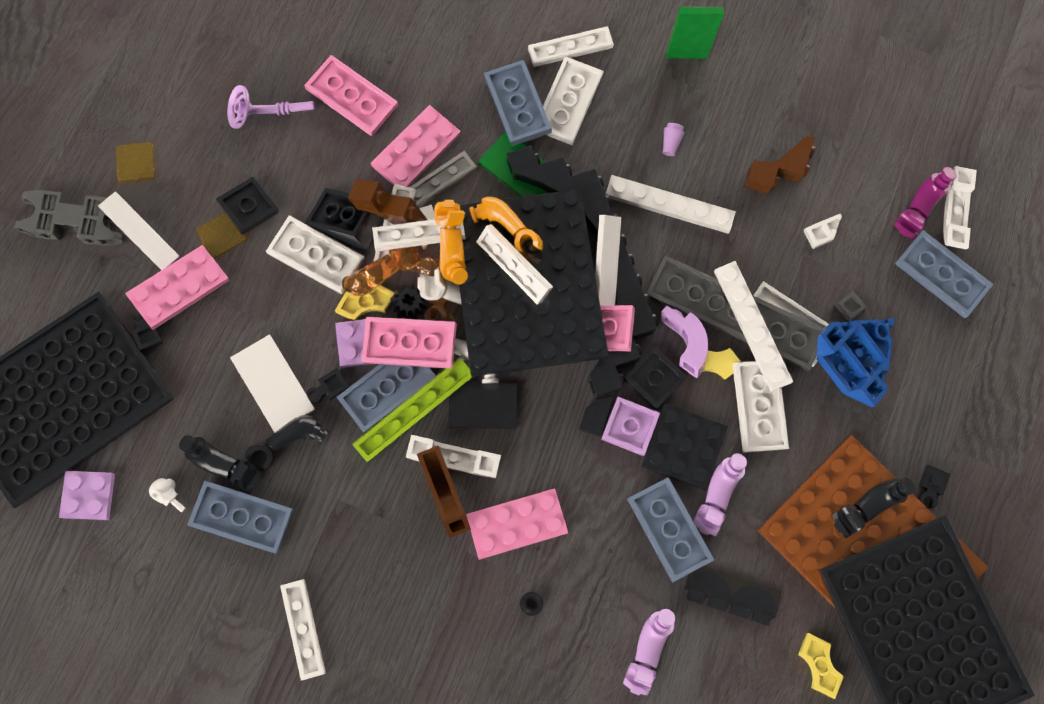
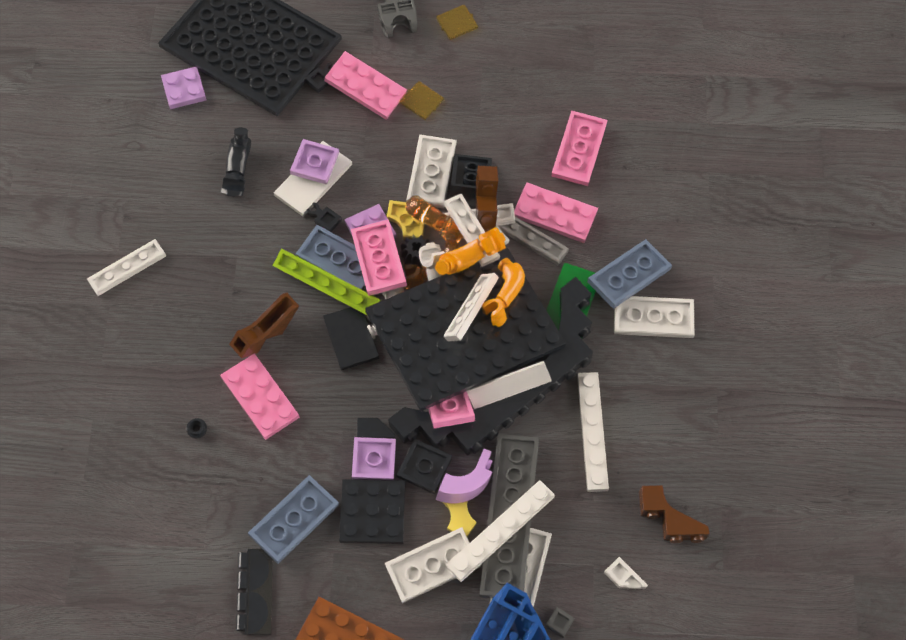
camera: 75 degrees right, 10 degrees down
(138, 231) = (398, 42): white tile -> none
(164, 492) = (201, 135): white piece -> none
(240, 517) = (199, 193): sand blue plate -> none
(244, 108) = (531, 73): lavender dish -> none
(247, 205) = (451, 108): black plate -> none
(256, 373) = (314, 161): none -> lavender plate
(298, 428) = (282, 207): black piece -> none
(457, 458) = (299, 329): white slope -> none
(570, 46) = (706, 302): white tile -> none
(650, 645) = (182, 533): lavender piece -> none
(672, 137) = (655, 412): lavender cone -> none
(694, 32) = (755, 387): green tile -> none
(722, 484) = (337, 552): lavender piece -> none

